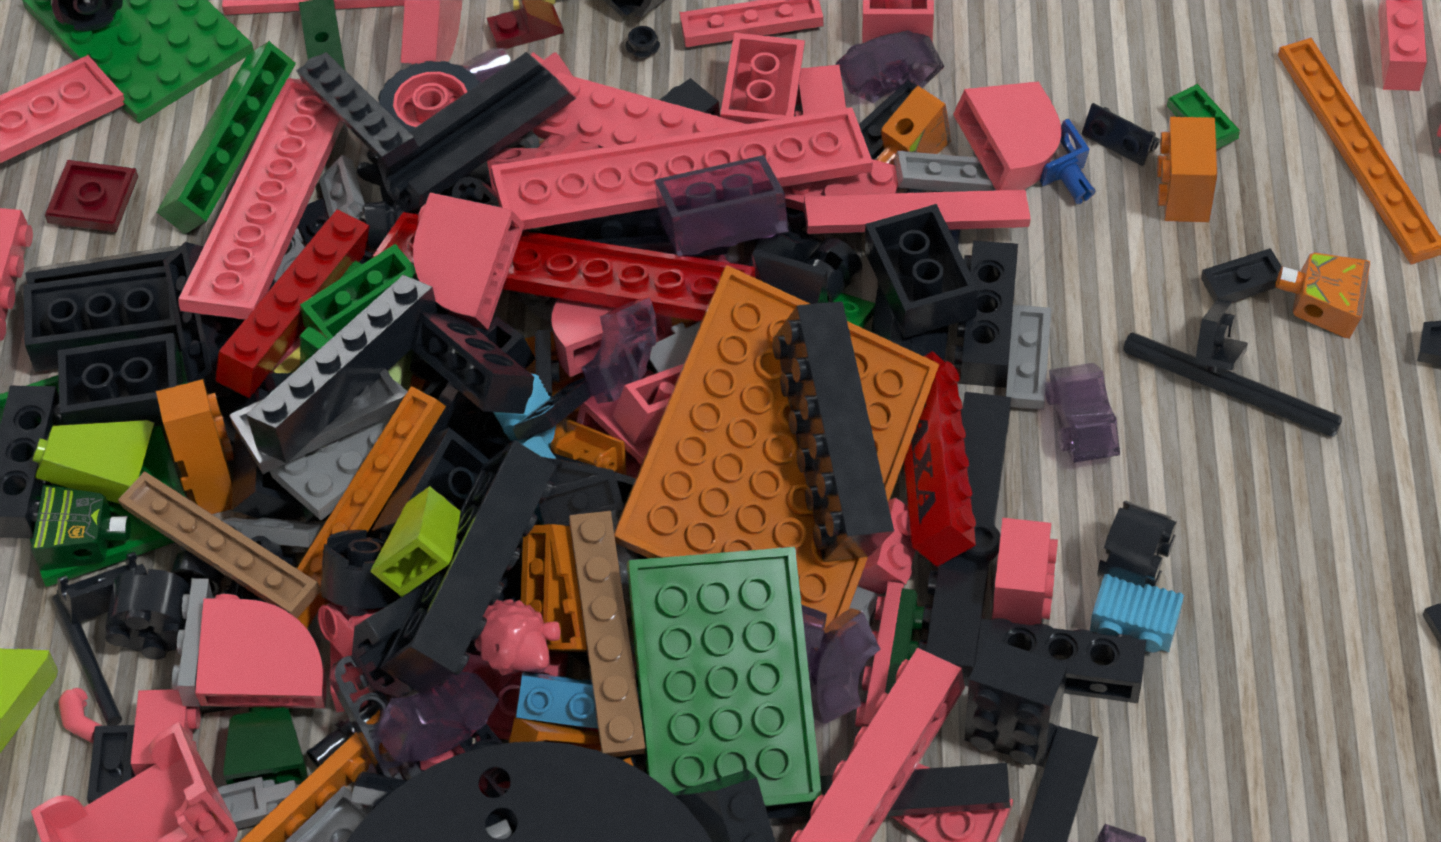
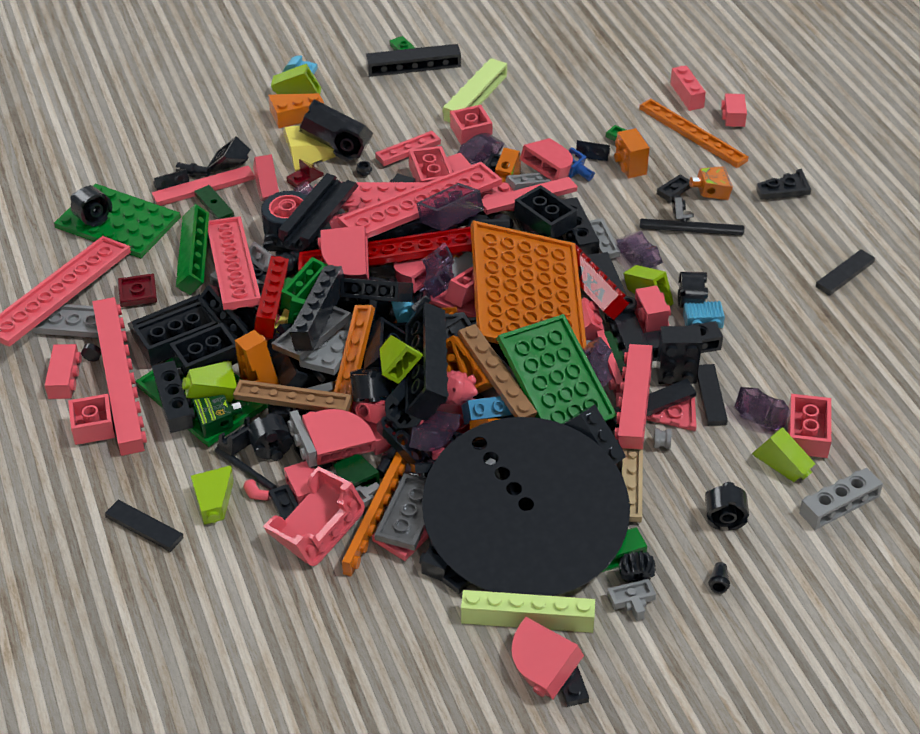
camera: 25 degrees left, 10 degrees down
(357, 109) = (255, 217): black plate -> none
(832, 432) = (552, 271): black brick -> none
(1062, 500) = (642, 277): none -> lime slope

